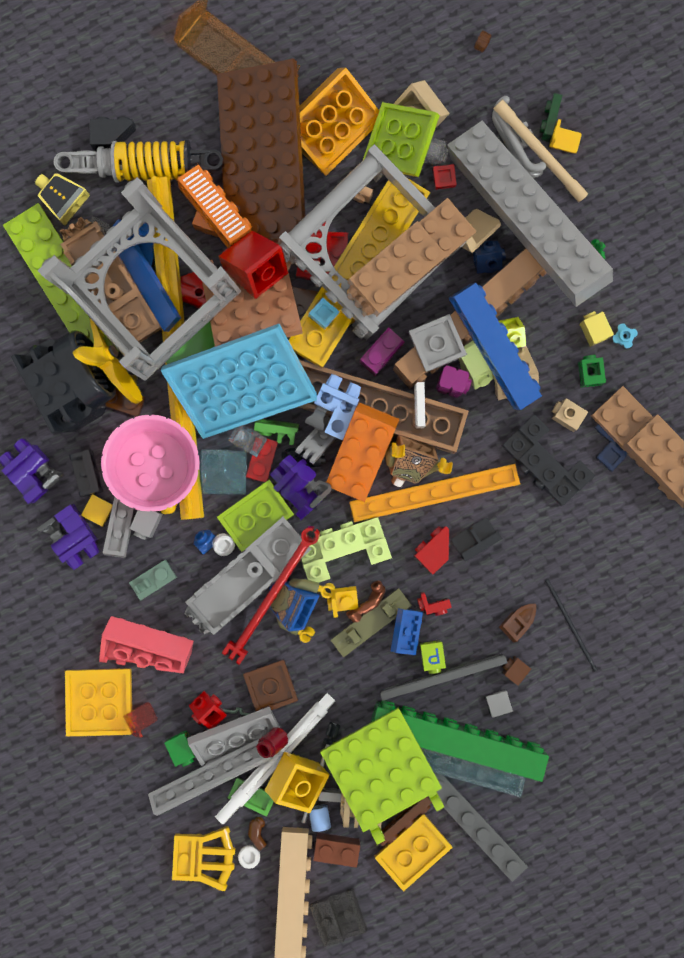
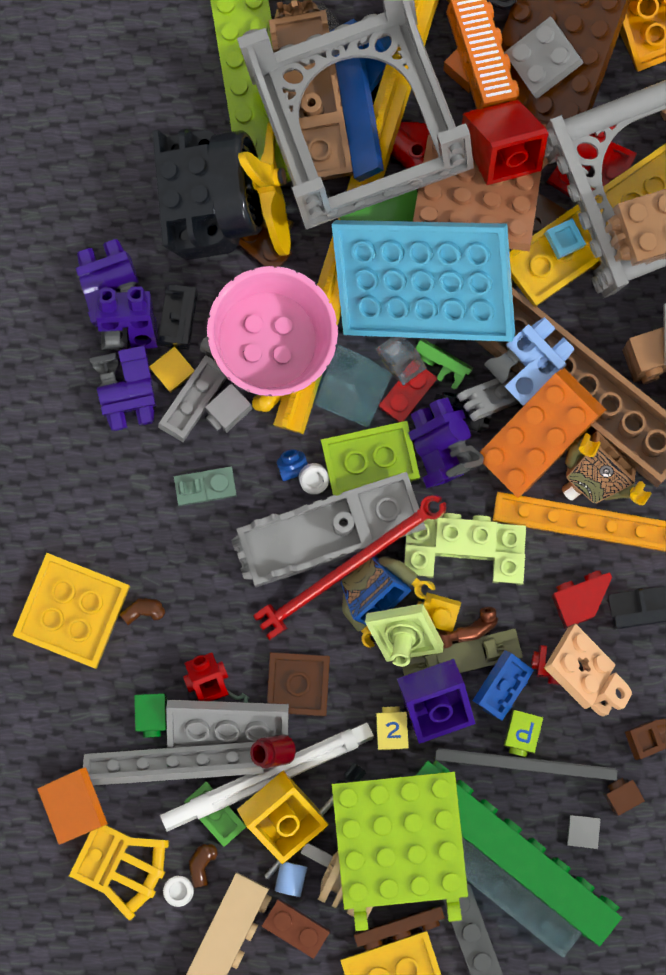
camera: 25 degrees right, 5 degrees down
(48, 486) = (125, 313): none -> dark purple hips
(140, 719) = (115, 654): clear red bracket -> none
(145, 646) = (159, 564): coral wedge -> none
(145, 679) = (145, 607): none -> reddish brown arm
(154, 833) = (72, 806): none -> orange tile
(257, 193) = (544, 57): none -> light grey plate
(326, 626) = (404, 633): none -> yellowish green plate
(345, 691) = (392, 729): none -> light yellow brick
(366, 661) = (436, 701): none -> dark purple brick
(381, 352) = (618, 319): magenta brick -> none
(419, 398) = (639, 403): white tile -> none
(465, 606) = (594, 682): none -> light nougat plate

